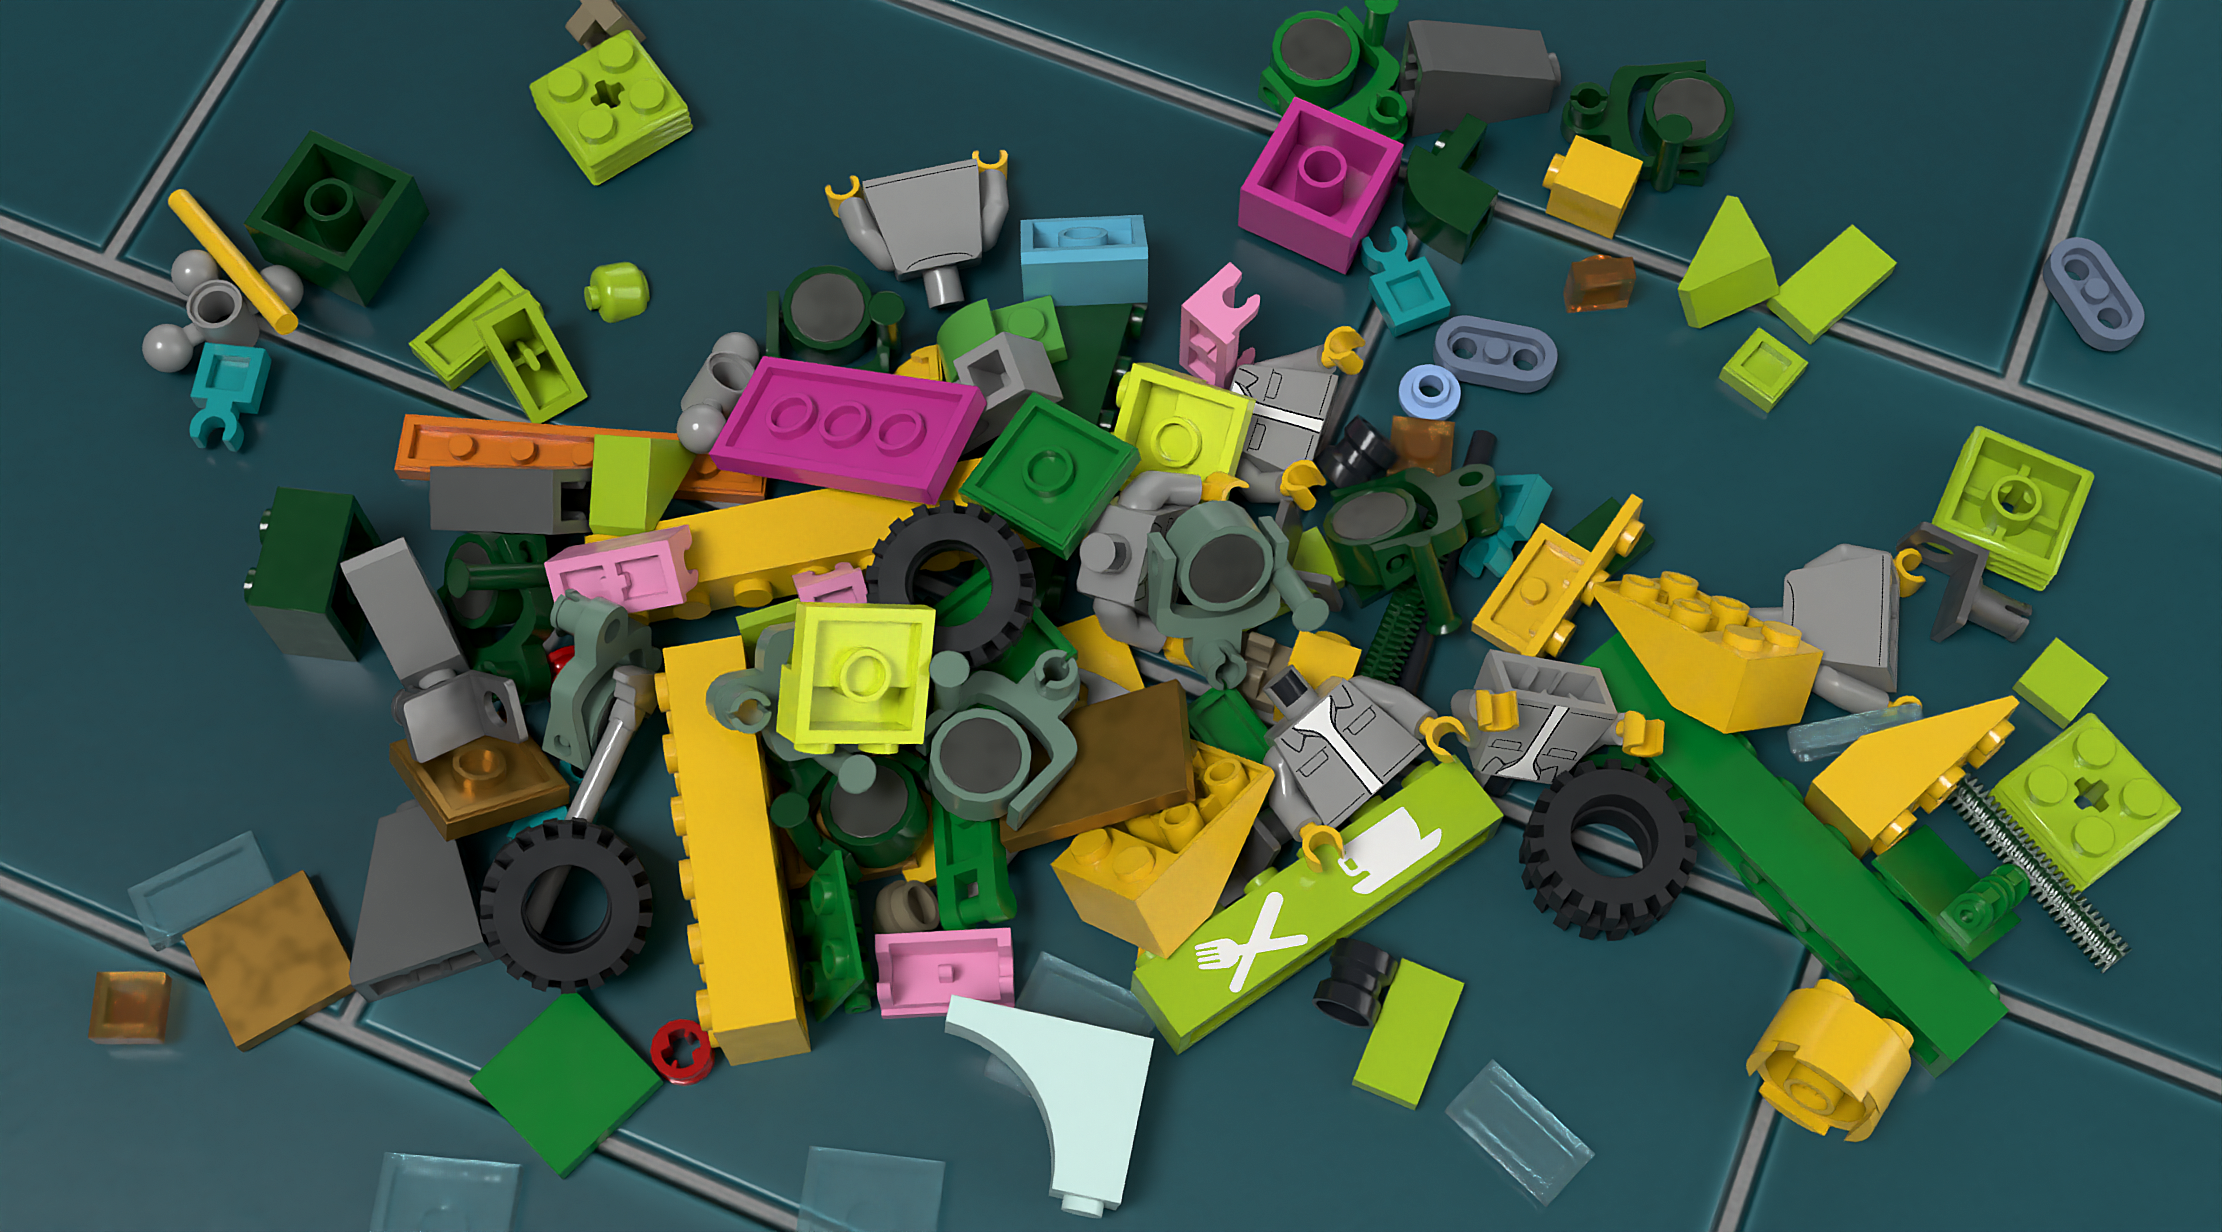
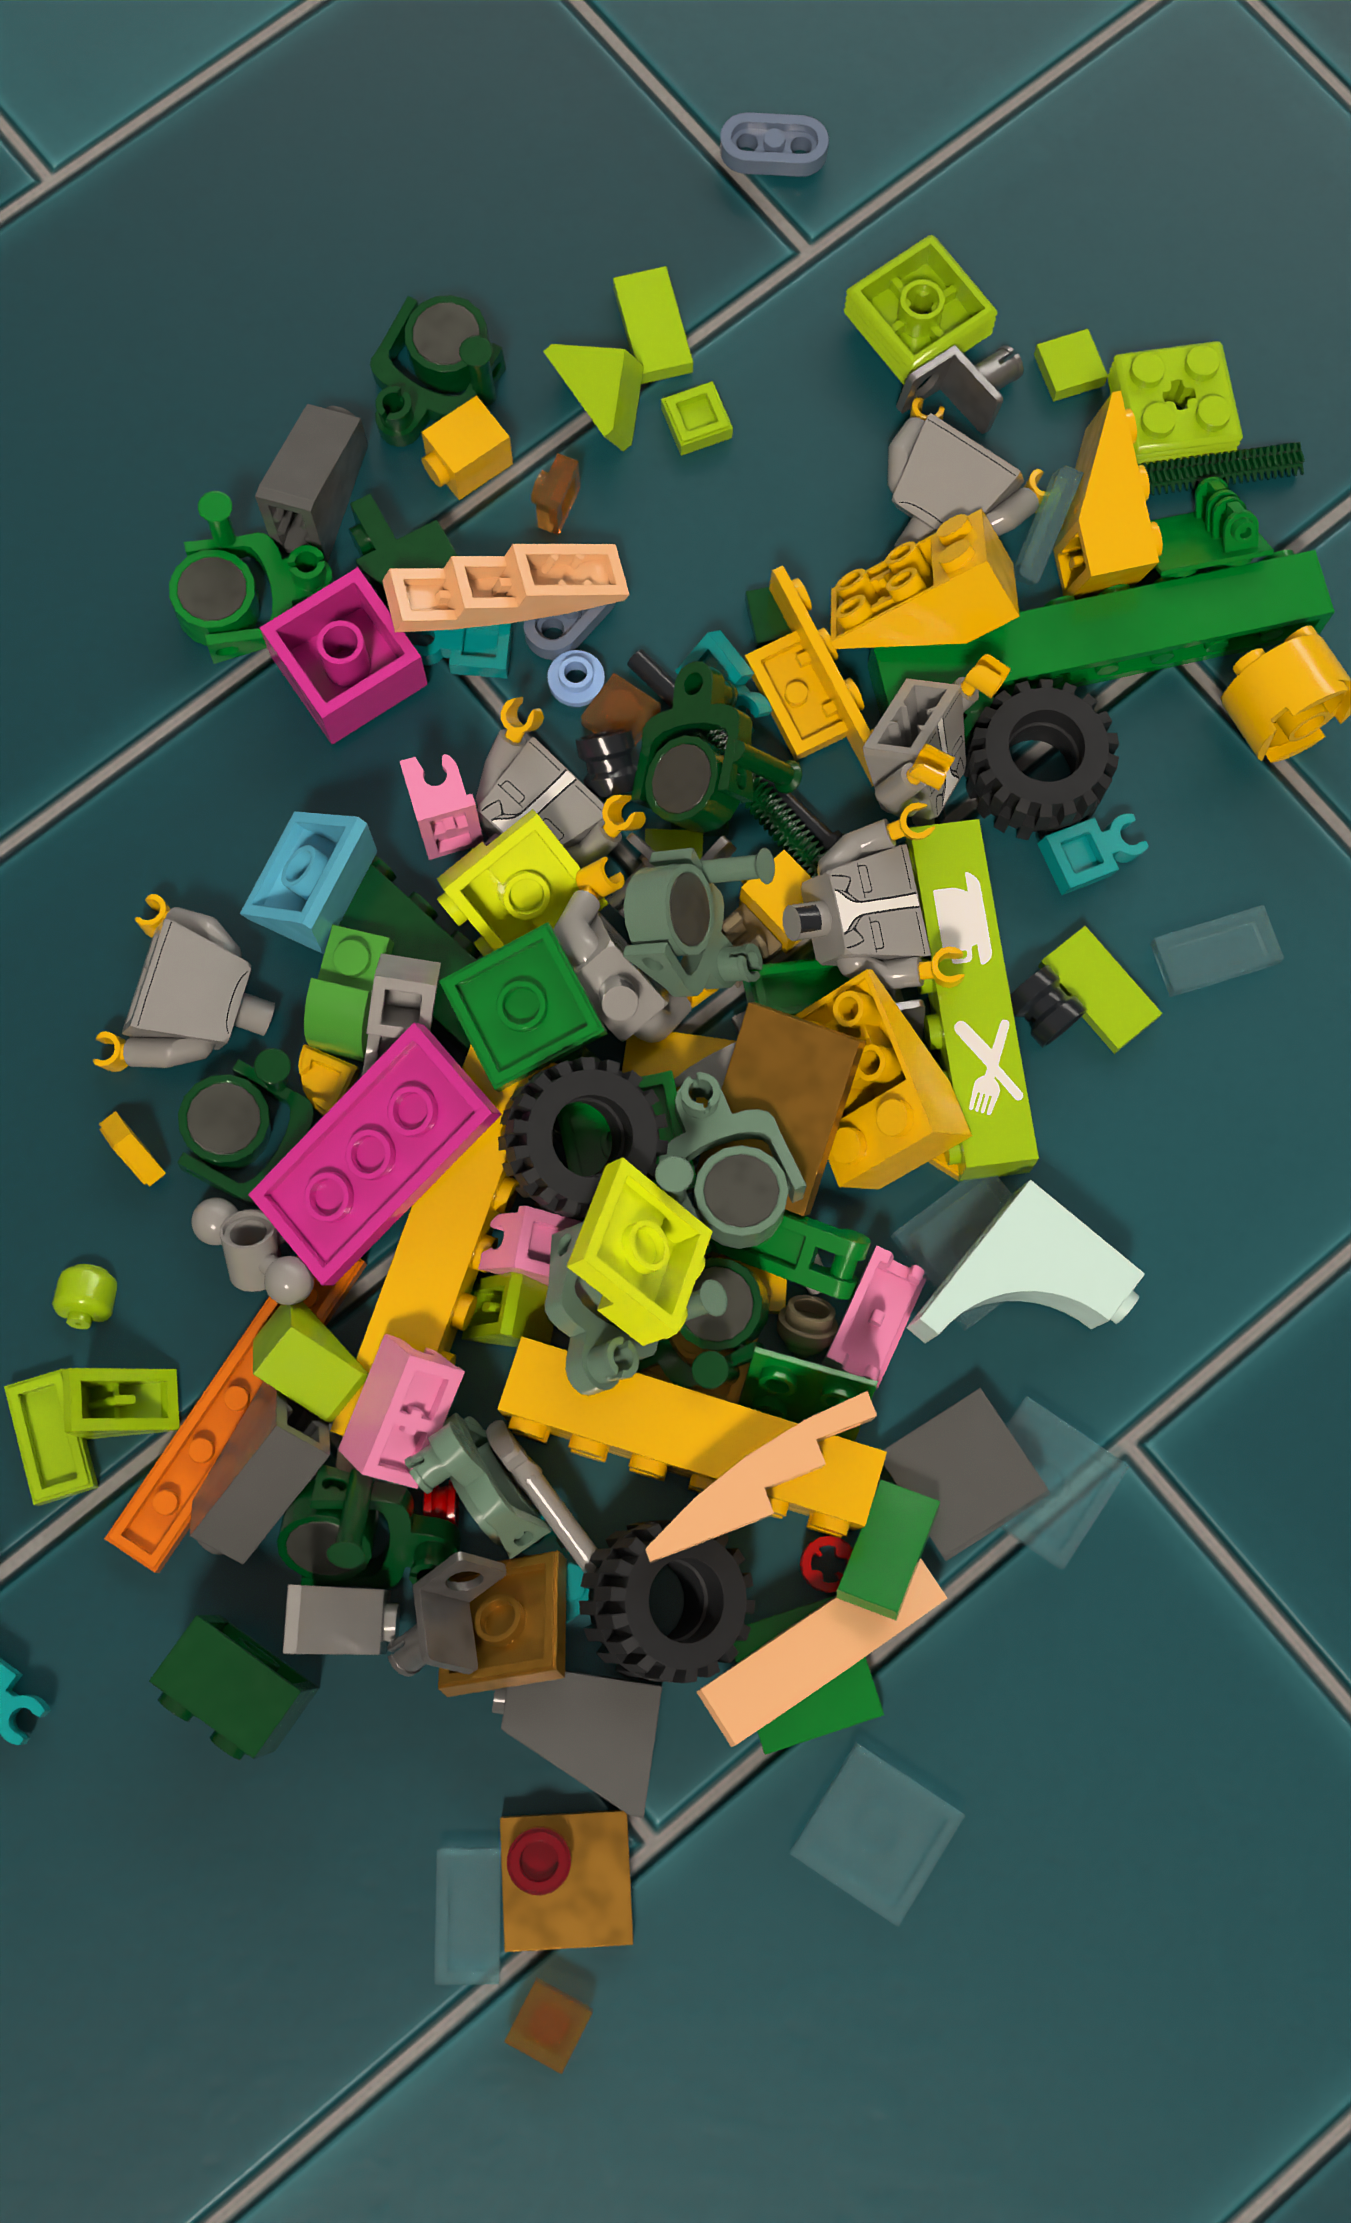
camera: 65 degrees left, 10 degrees up
(276, 920) = (539, 1860): none -> dark red tile
(593, 1072) = (808, 1658): none -> light nougat slope
(687, 892) = (740, 1493): none -> light nougat slope
(712, 1084) = (888, 1550): none -> green tile
(765, 256) = (131, 1149): none -> yellow tile
(831, 1133) = (971, 1468): none -> dark grey tile
(1467, 280) = (506, 589): none -> light nougat slope
(1539, 946) = (1087, 855): none -> teal plate

